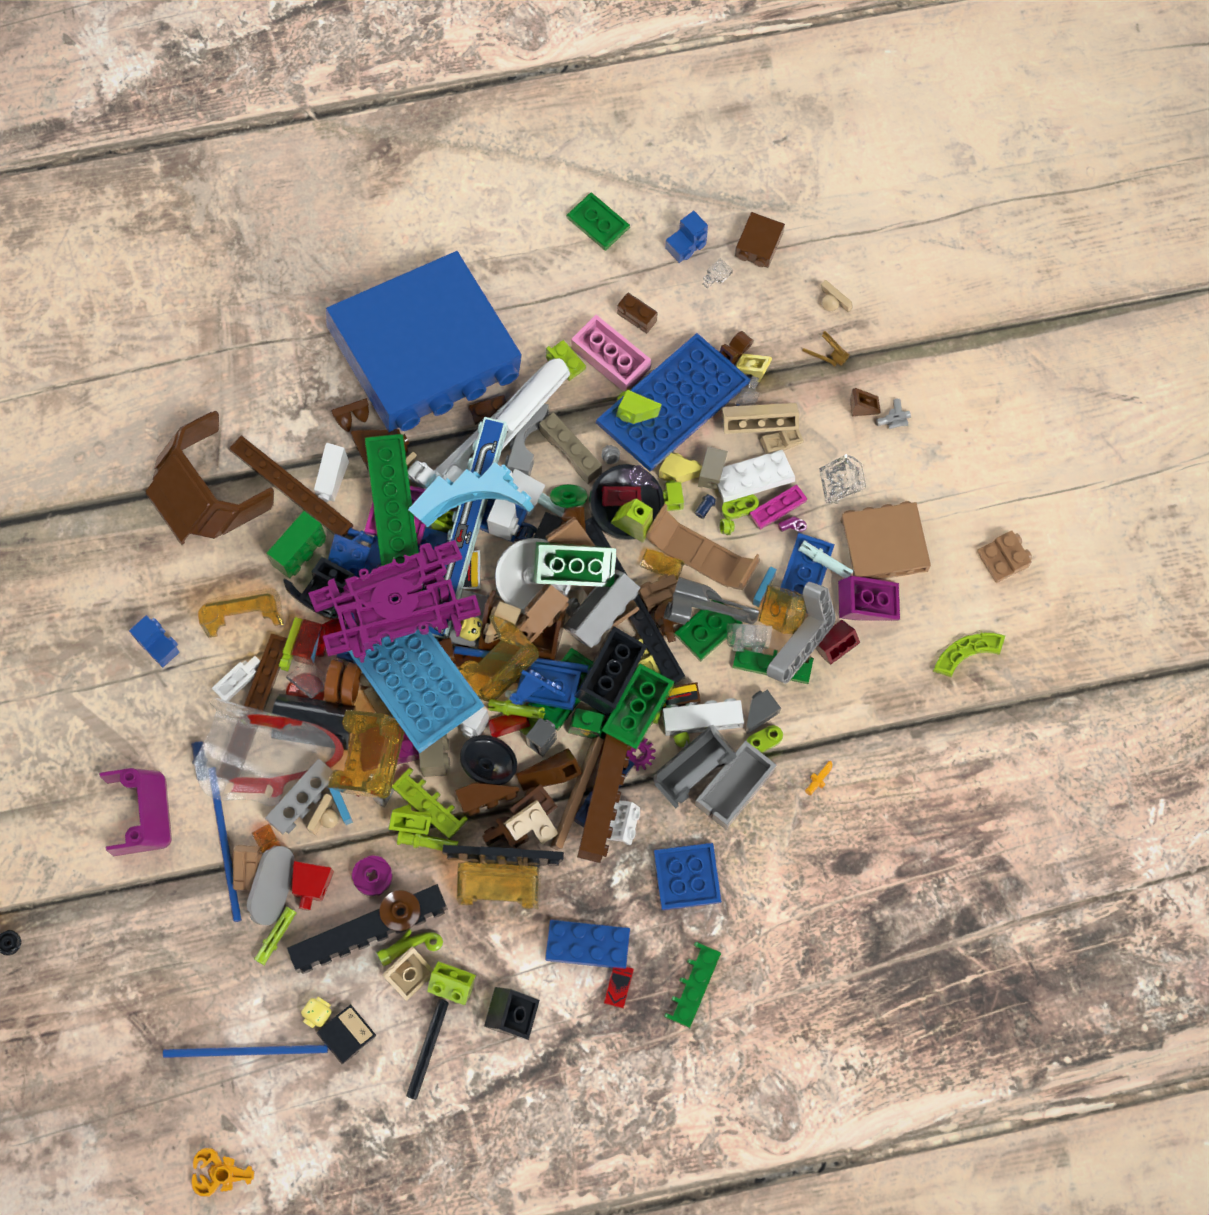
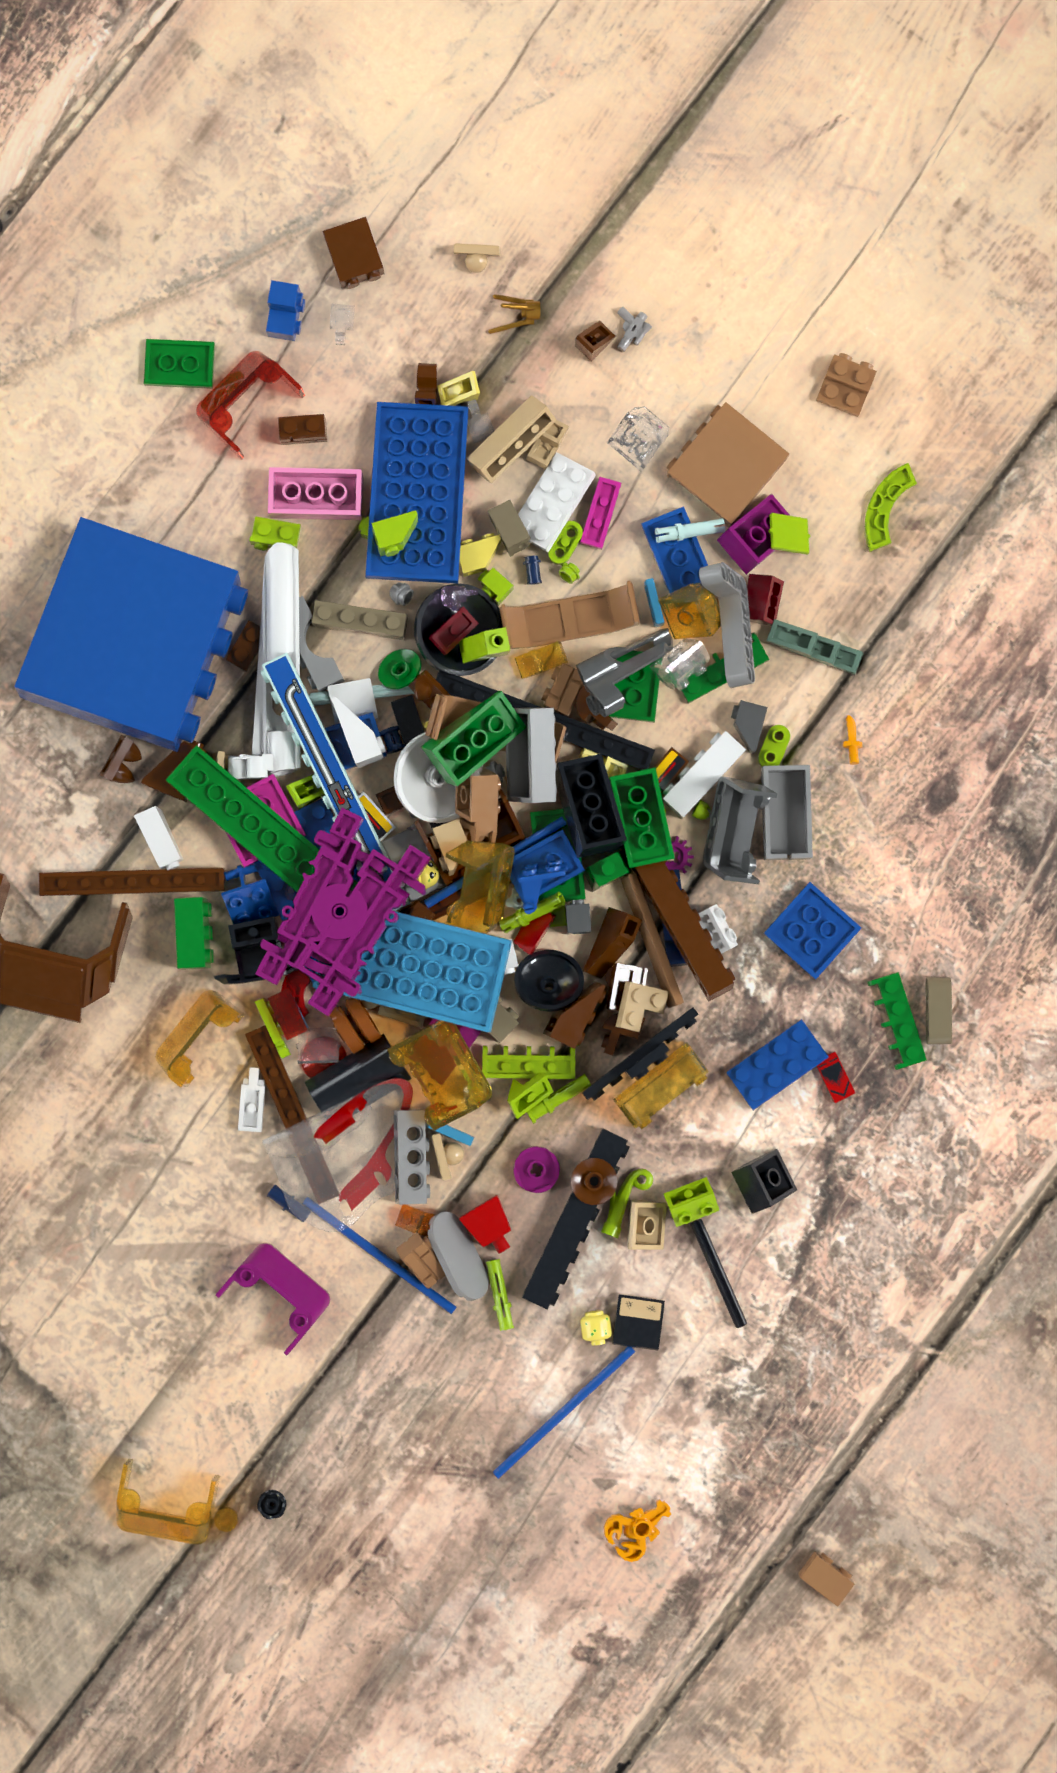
camera: 40 degrees left, 15 degrees up
(152, 639) = (147, 1134): blue brick -> none
(445, 494) = (292, 771): medium azure arch -> none
(488, 570) = (389, 801): none -> reddish brown tile
(597, 260) = (214, 406): none -> clear red windscreen
(726, 1001) = (938, 1010): none -> dark tan beam
(793, 523) = (628, 516): magenta arm -> none
(845, 699) = (814, 646): none -> sand green slope
(888, 615) = (789, 533): none -> lime piece

